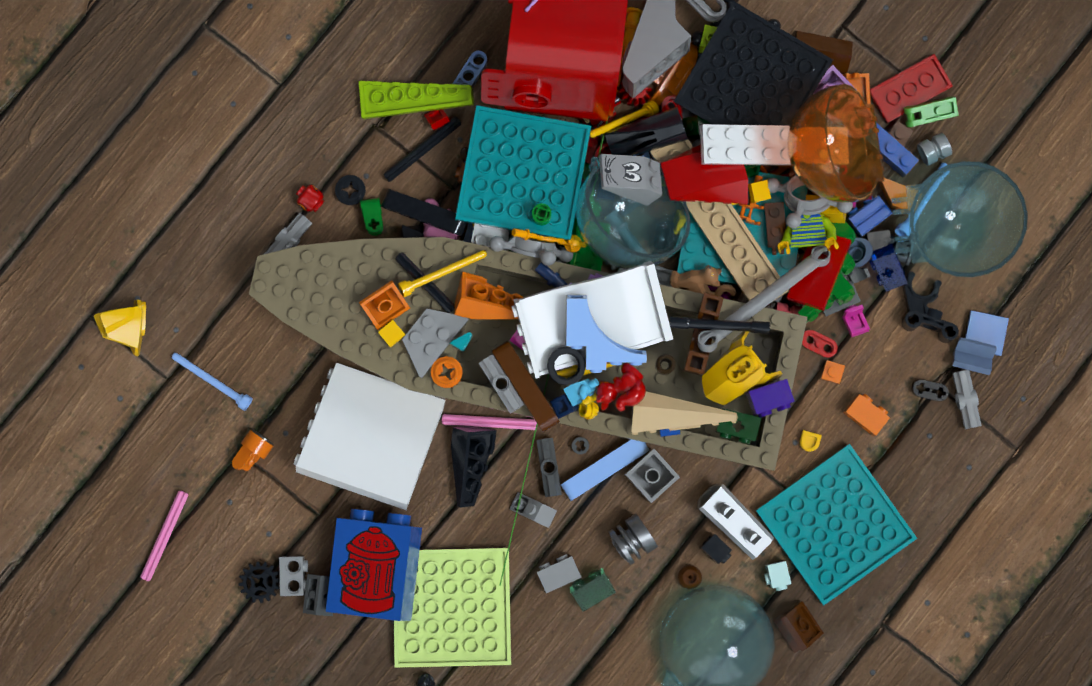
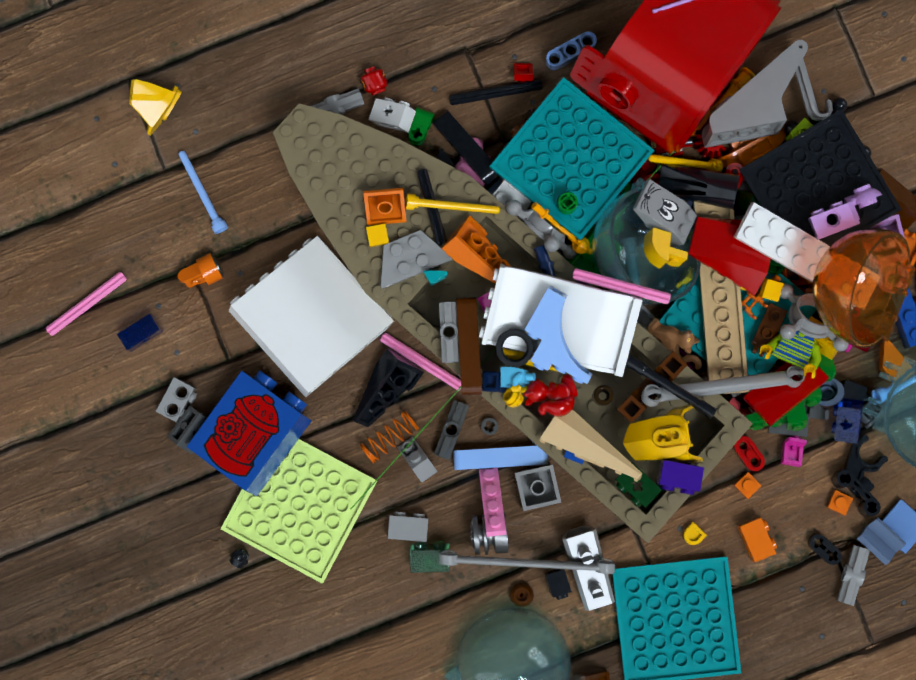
camera: 35 degrees right, 0 degrees up
(227, 534) = (140, 332): none -> clear blue brick
(270, 590) = (150, 400): black gear -> none
(342, 219) = (392, 114): none -> white brick
(344, 183) = (412, 84): black gear -> none
(398, 98) = (500, 37): lime wing -> none
(450, 363) = (400, 288): orange gear -> none
(492, 529) = (370, 455): none -> orange piece
(614, 578) = (453, 558): none -> light grey piece
(619, 510) = (492, 502): none -> bright pink plate
(629, 261) = (621, 286): none -> bright pink axle
(643, 211) = (658, 249): none -> yellow brick
(777, 575) = (599, 637): light aqua brick -> none
(786, 90) = (845, 214): none -> lavender brick
(868, 216) = (855, 366): blue brick -> none
(920, 342) = (839, 502): none -> orange plate

